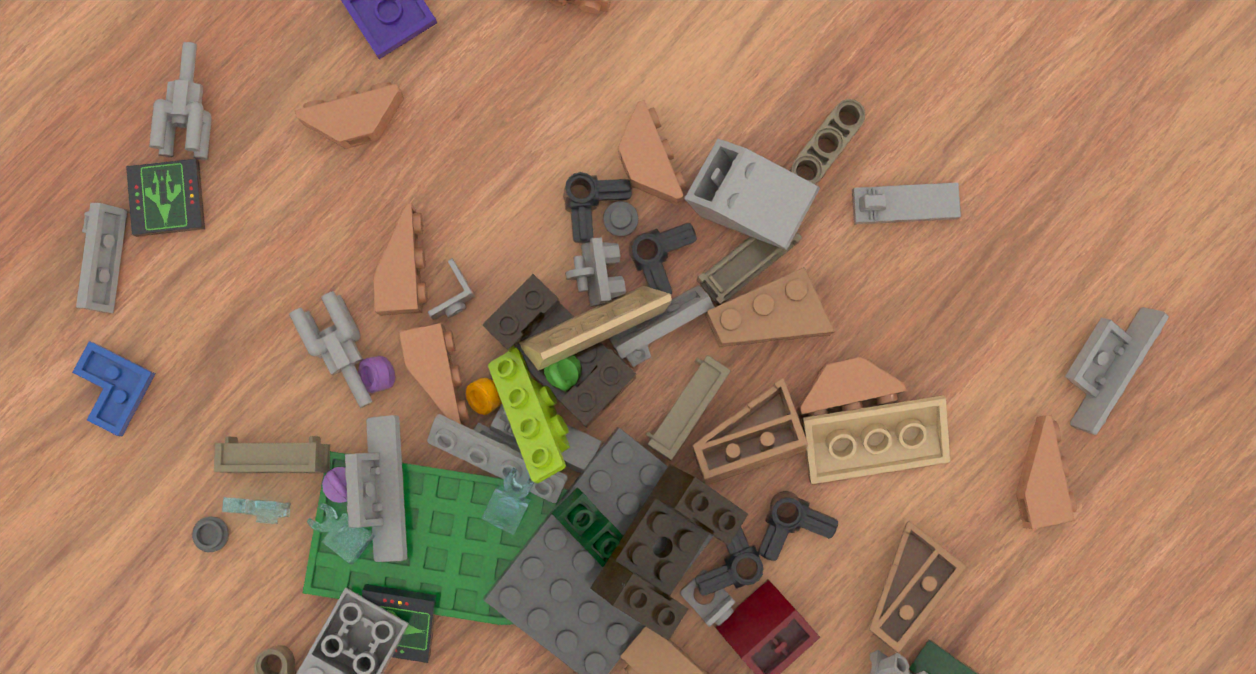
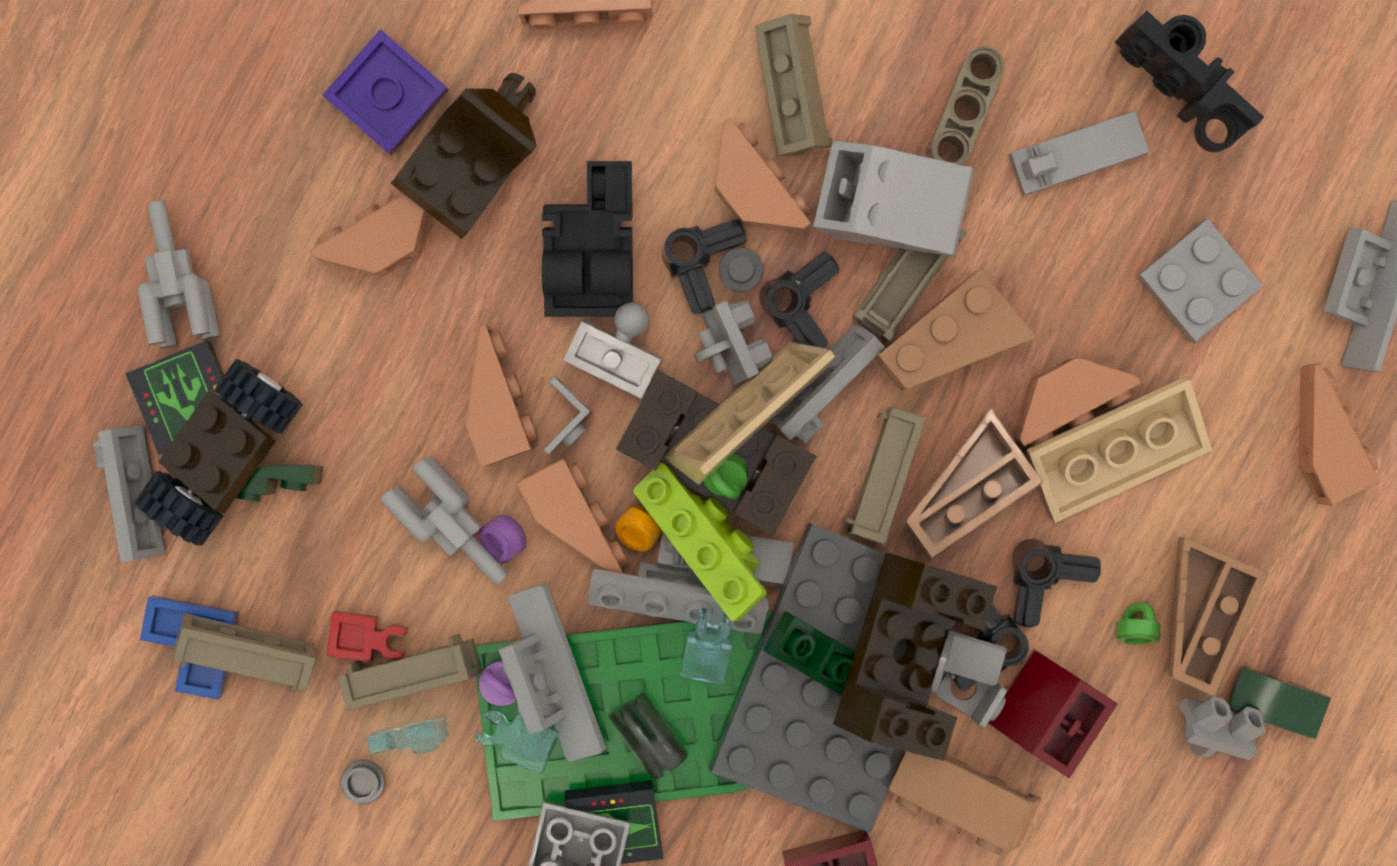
camera: 20 degrees left, 5 degrees up
(148, 403) = (244, 651): none -> dark tan container
(175, 244) = (217, 452): none -> plate
(199, 275) = (292, 477): none -> dark green slope
(241, 418) = (357, 637): none -> red plate
(437, 72) = (469, 154): none -> dark brown plate
(443, 558) = (649, 735): none -> clear smoke arm
(503, 256) = (614, 355): none -> light grey plate
(506, 173) = (587, 252): none -> black plate
(699, 89) = (792, 85): none -> dark tan container
(711, 568) = (970, 659): none -> light grey bracket
(852, 586) = (1138, 631): none -> bright green tile
(974, 327) = (1199, 280): none -> light grey plate
(994, 146) = (1172, 58): none -> black plate

